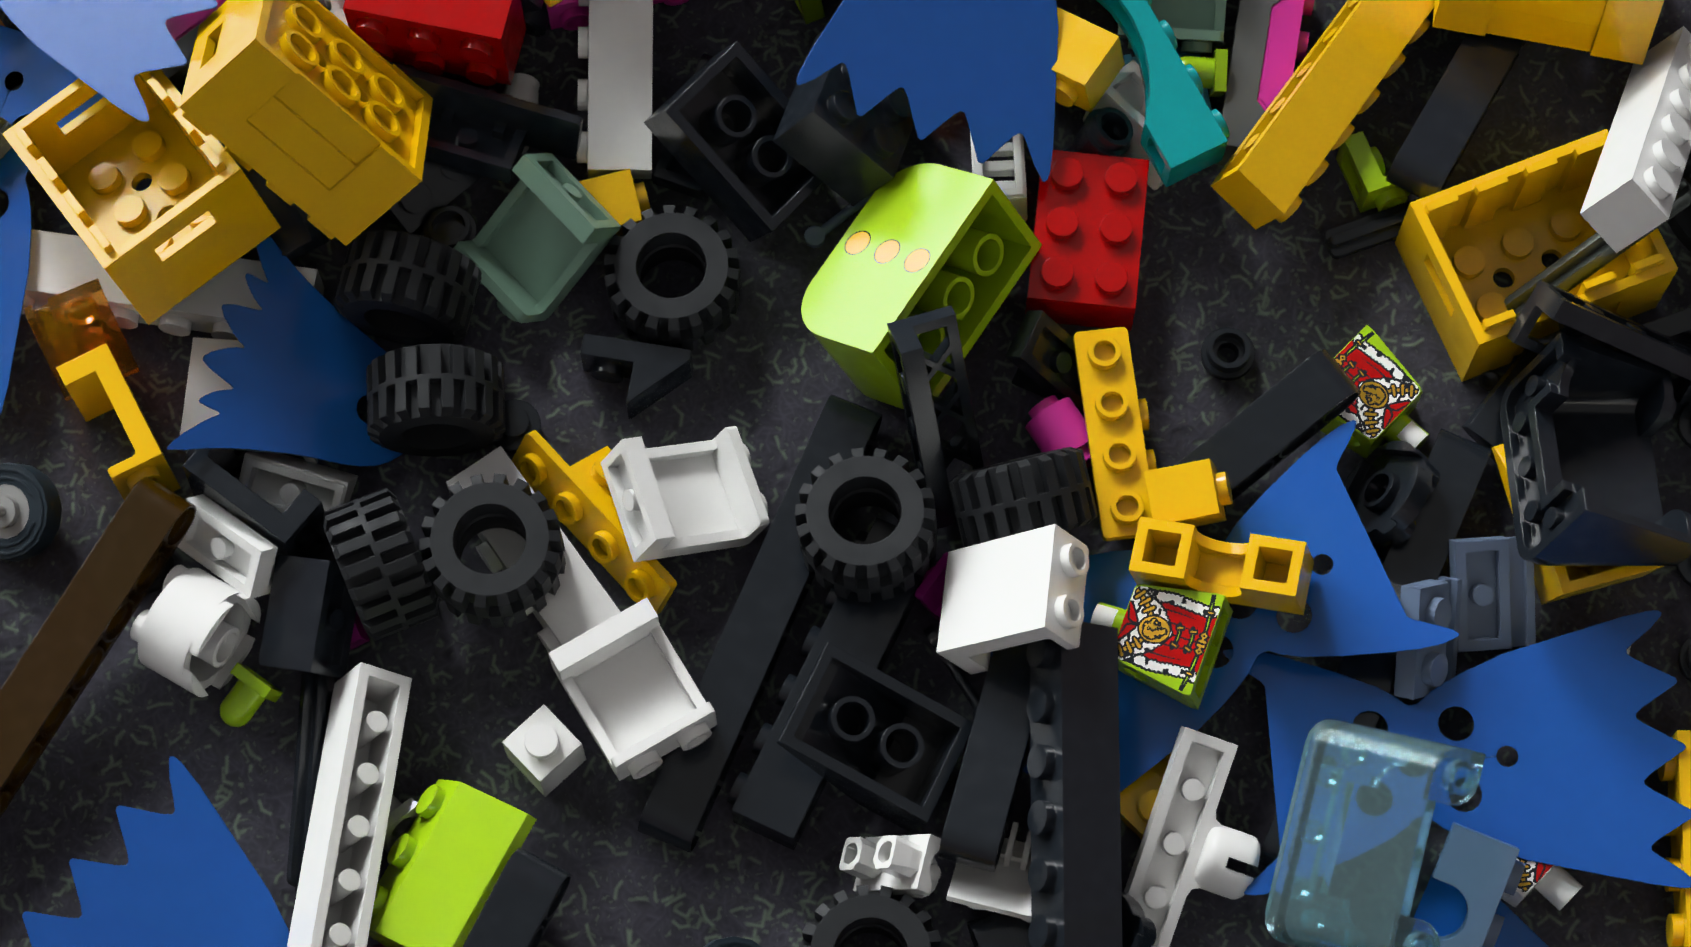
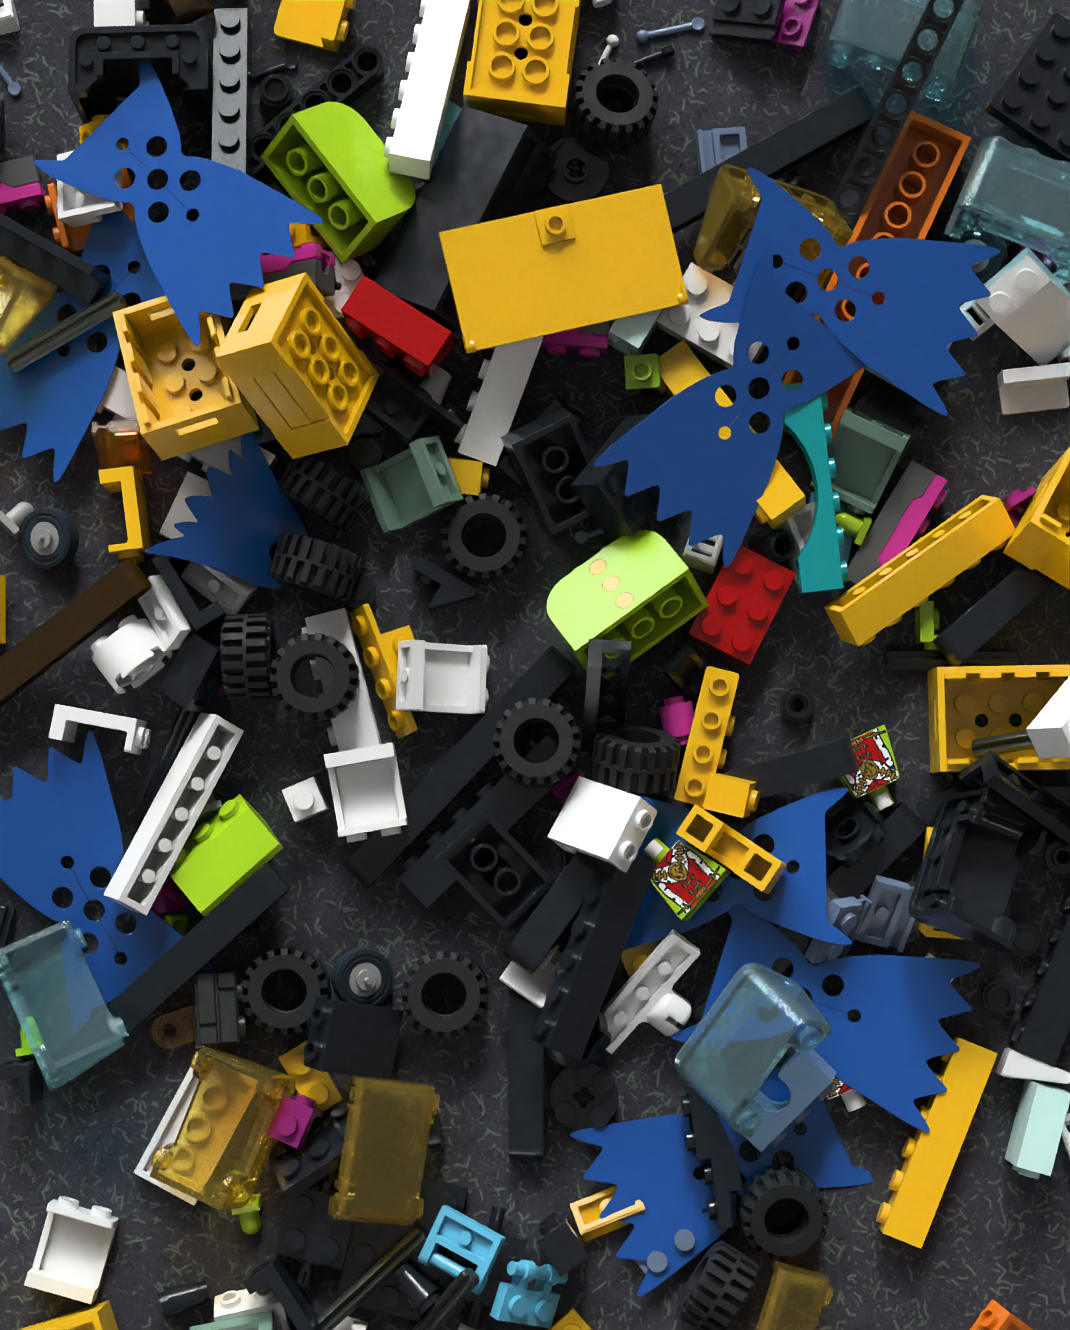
camera: 25 degrees right, 15 degrees up
(192, 738) = (66, 721): none -> white panel
(246, 696) = (149, 699): lime piece -> none
(893, 862) = (478, 942): white hips -> none

